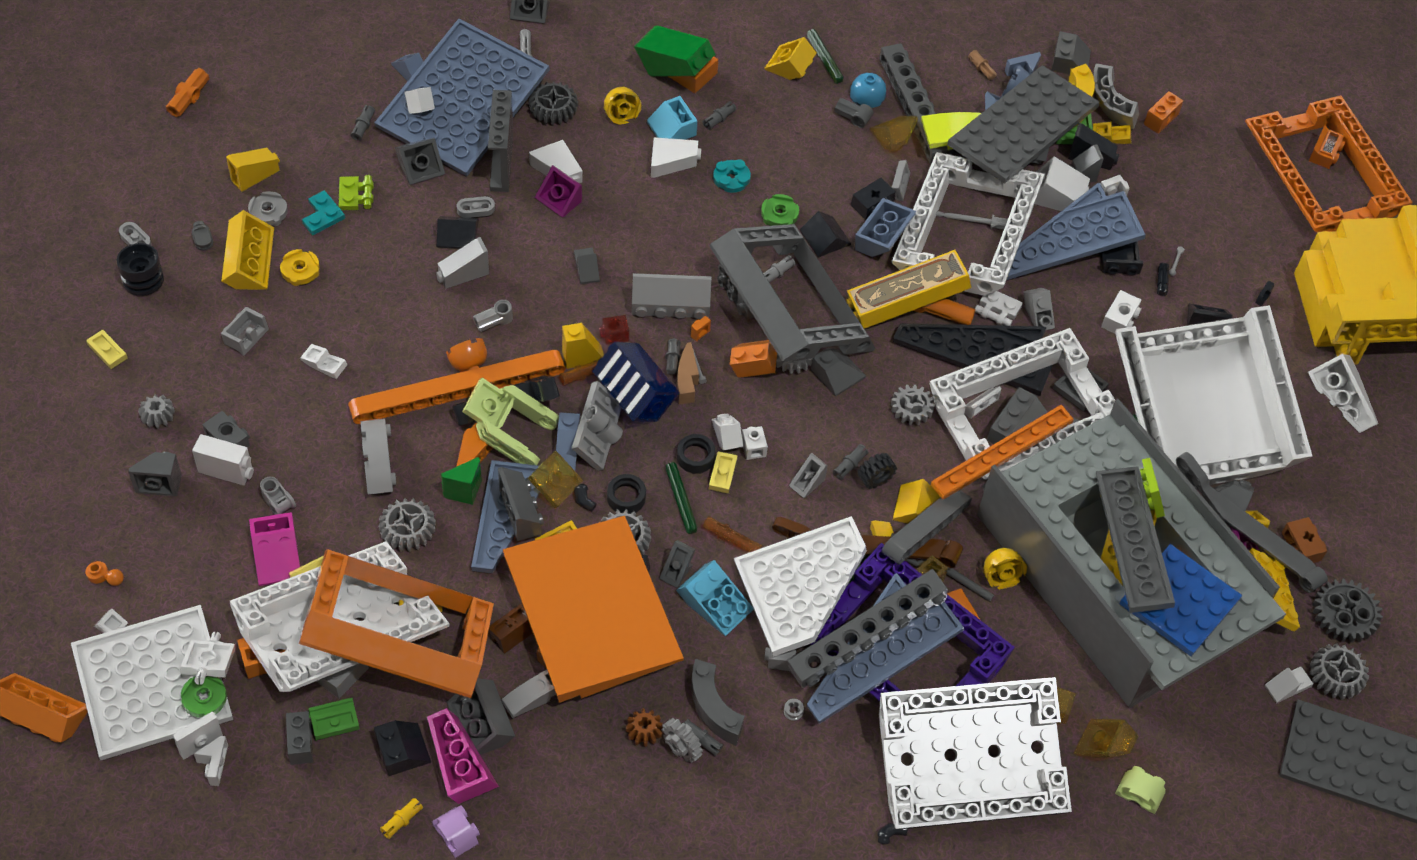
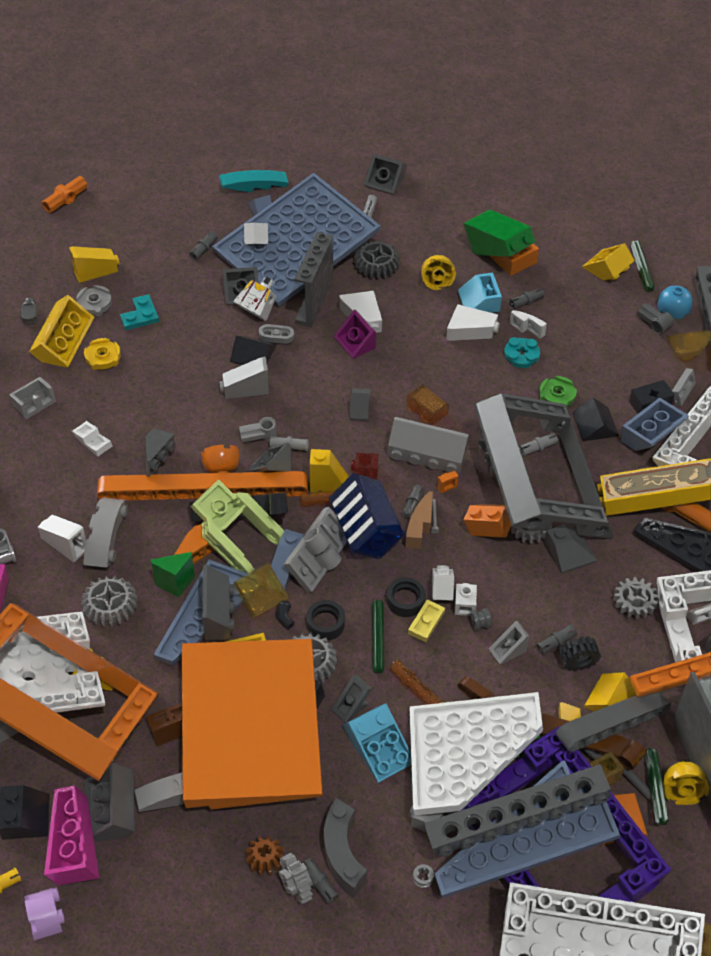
camera: 20 degrees right, 5 degrees down
(336, 470) = (63, 536): none -> white slope
(349, 192) = (170, 302): lime plate -> none
(386, 36) = (252, 179): none -> teal slope
(398, 358) = (157, 448): none -> dark grey slope
(444, 172) = (257, 298): none -> white torso
(520, 343) = (273, 459): none -> dark grey slope
(529, 322) = (296, 444): none -> light grey pin
(655, 252) = (427, 405): none -> clear orange brick
(724, 142) = (524, 321): none -> white slope
(774, 459) = (480, 619): none -> dark grey wheel
(979, 577) = (657, 787): none -> dark green axle

